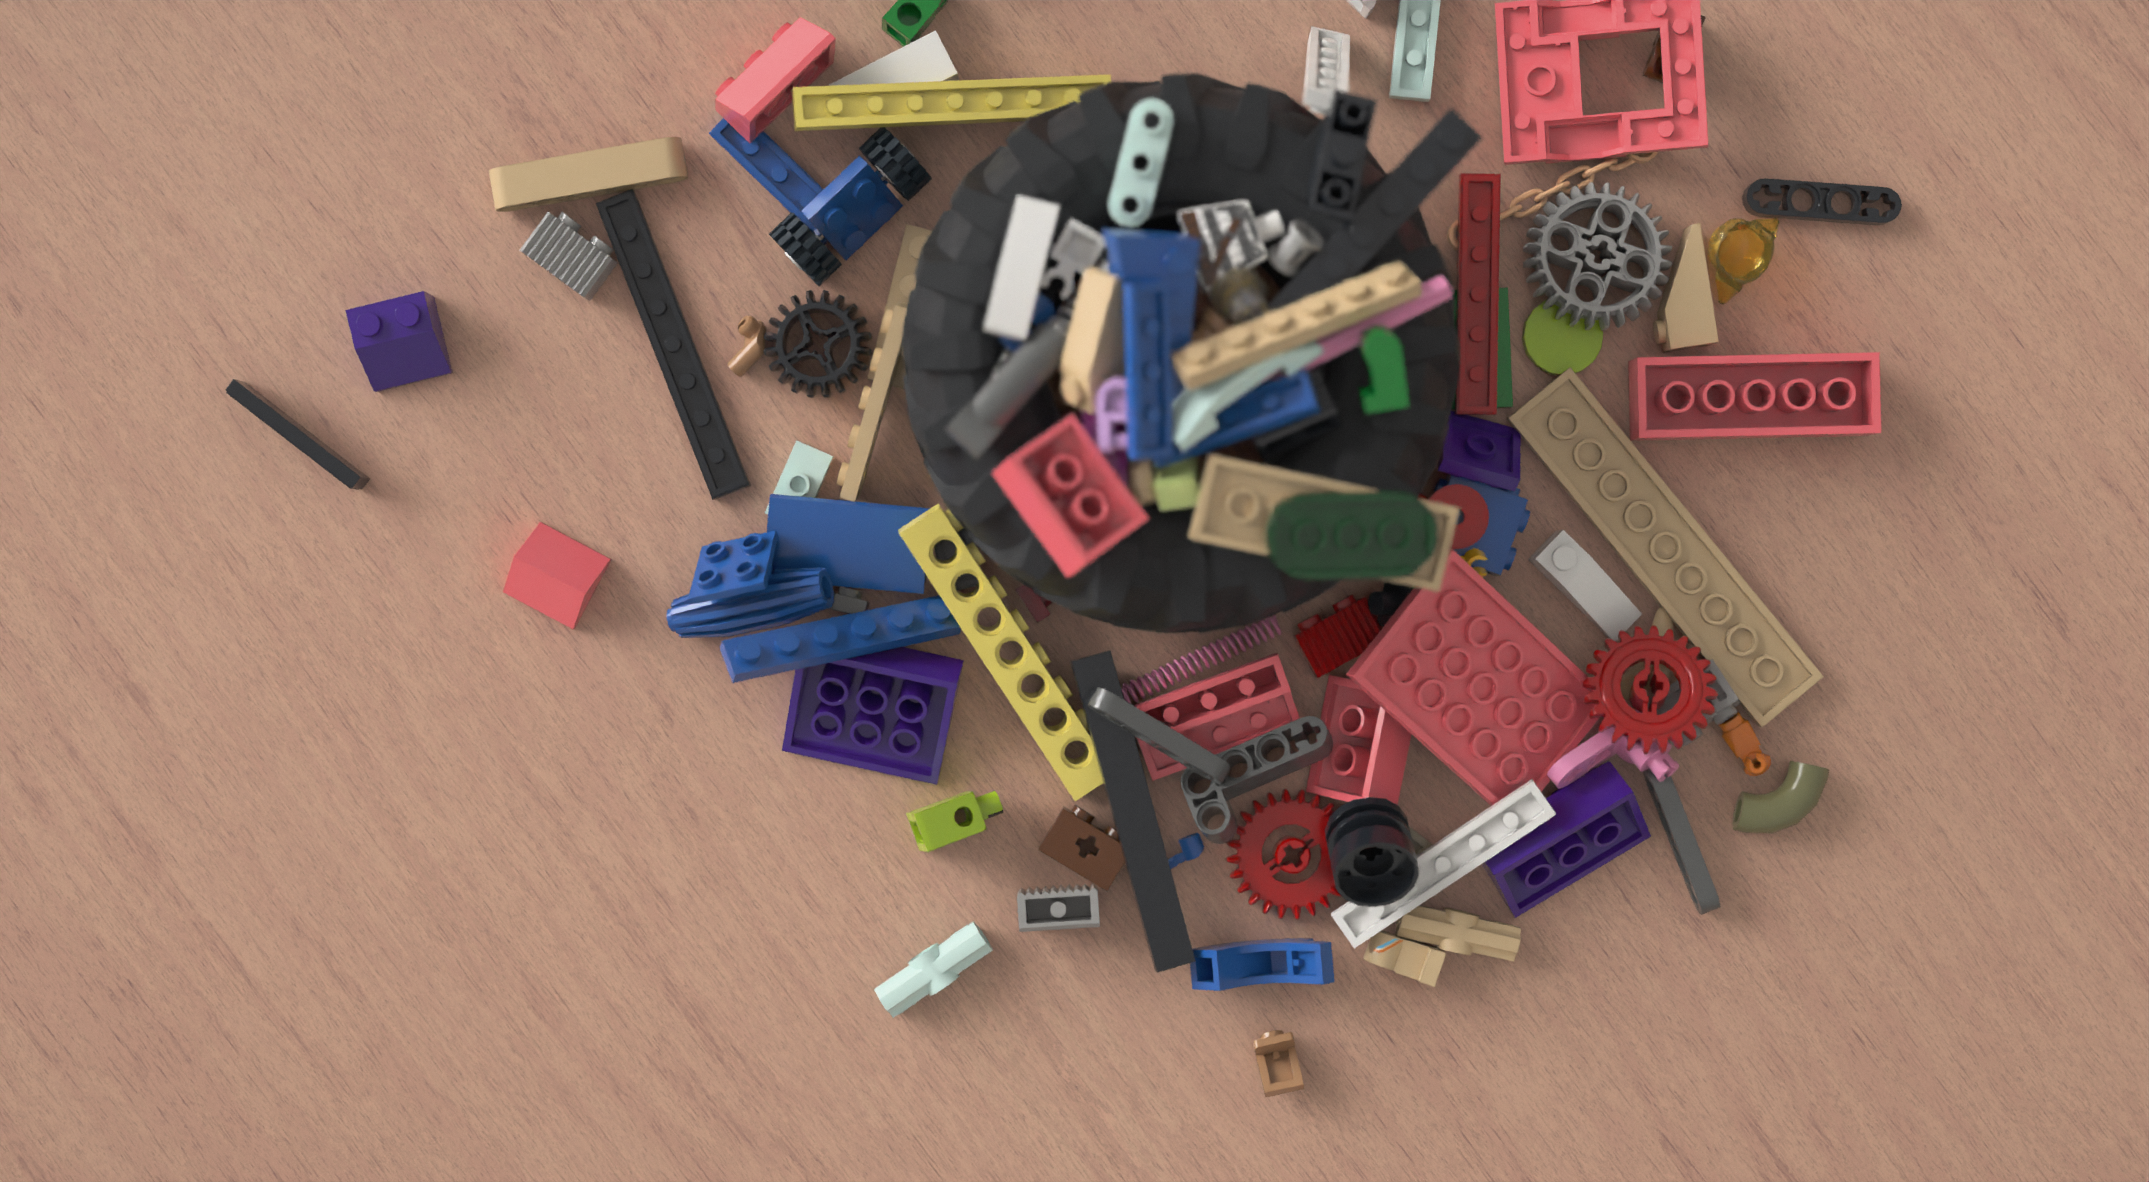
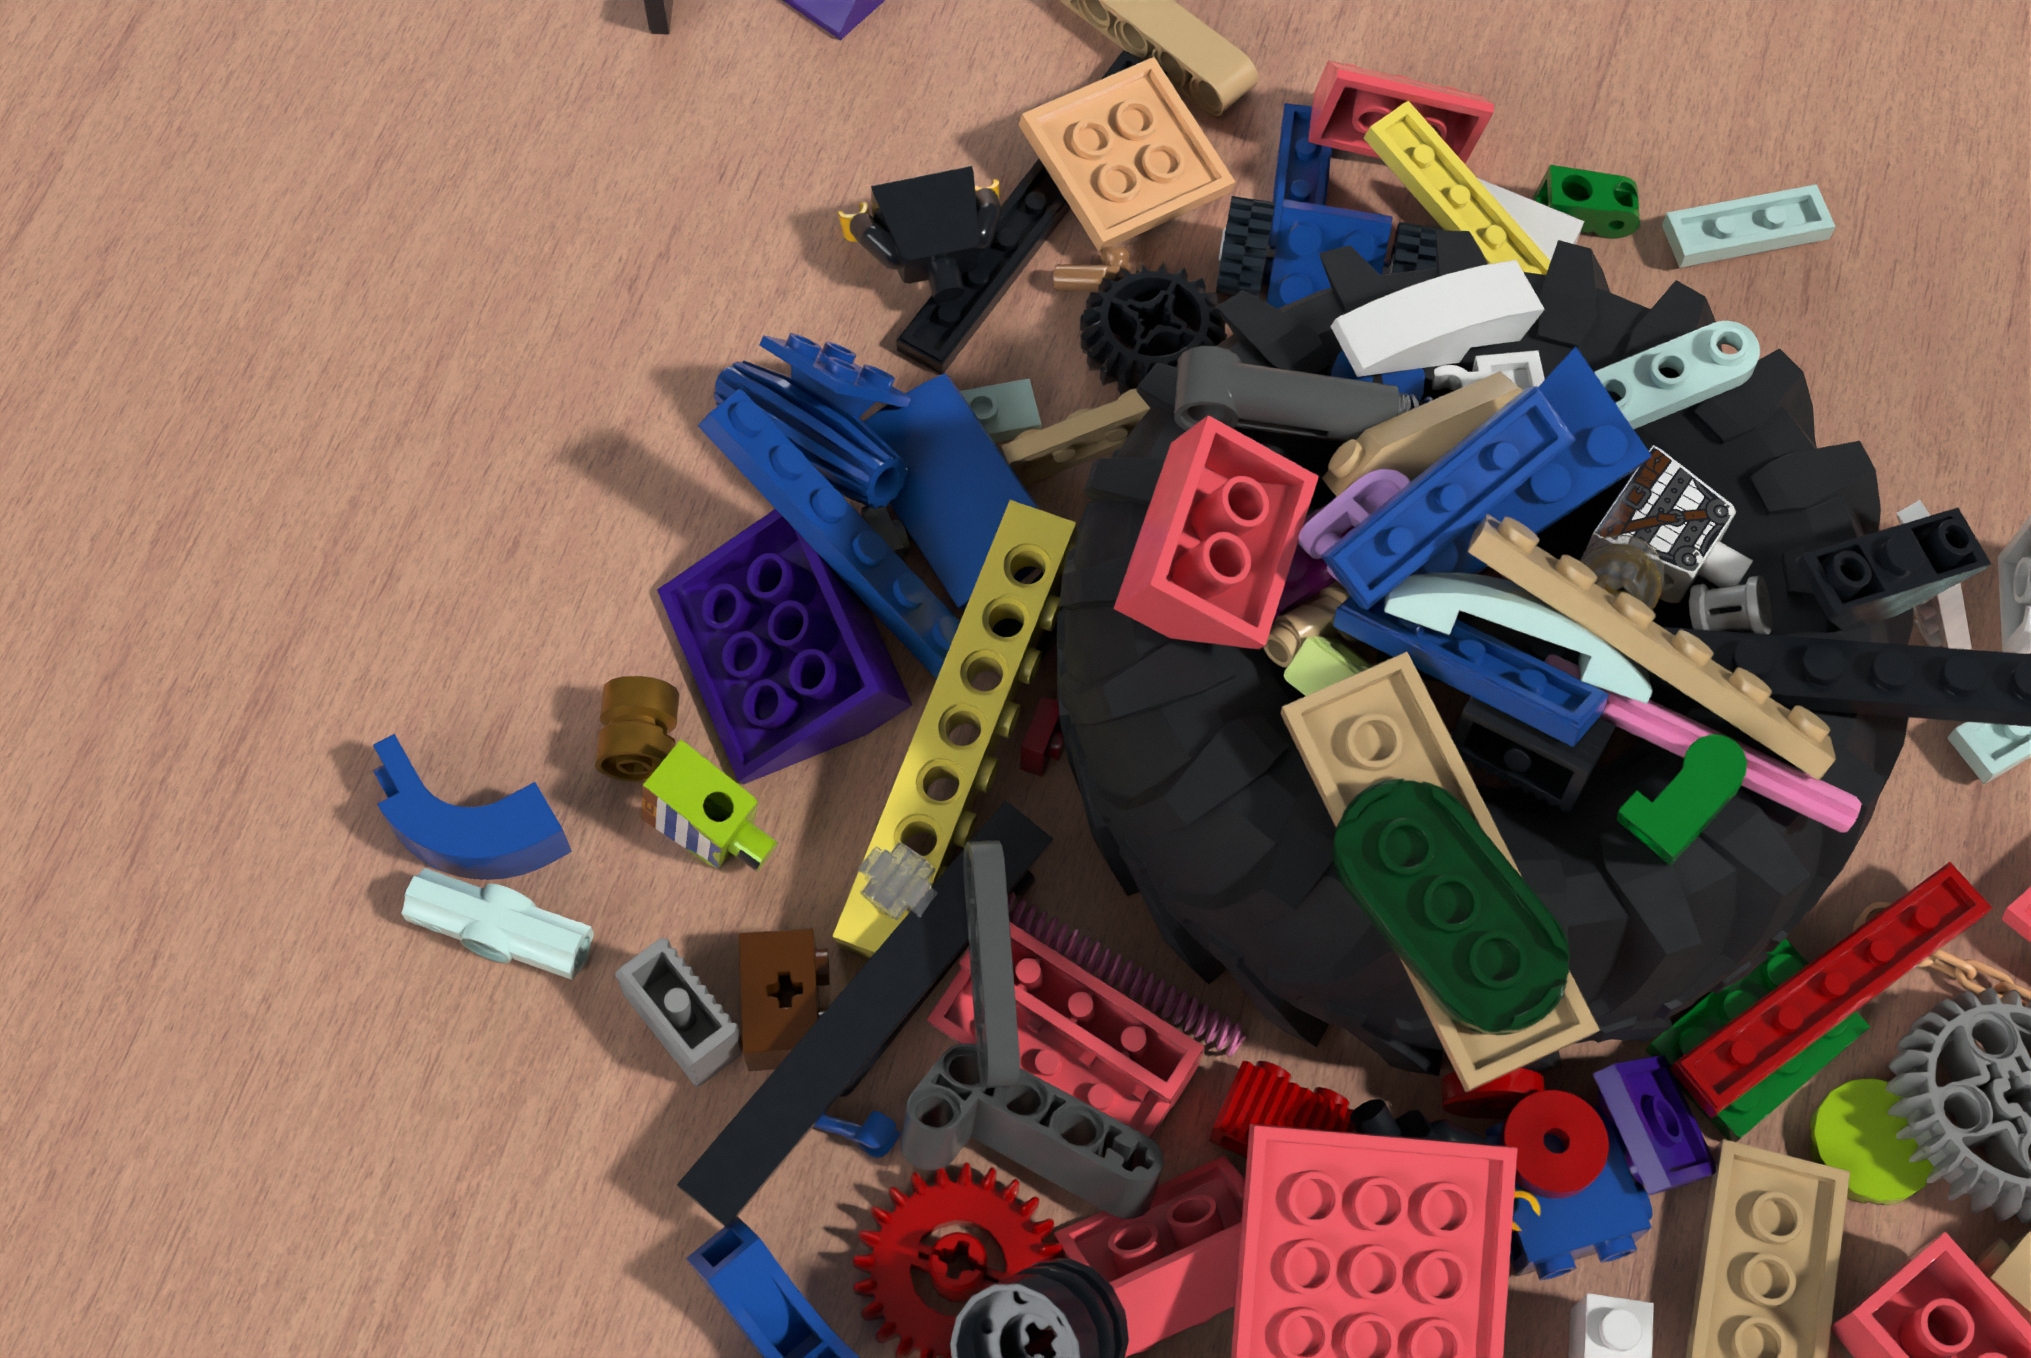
camera: 55 degrees right, 25 degrees down
(555, 574) = (693, 245): coral slope -> none
(568, 255) = (1050, 52): light grey brick -> none
(656, 430) = (928, 227): none -> black torso
(682, 266) = (1126, 154): none -> light nougat plate
(871, 822) = (636, 722): none -> pearl gold wheel
(884, 940) = (467, 842): none -> blue arch
(1079, 753) = (897, 881): none -> clear gear

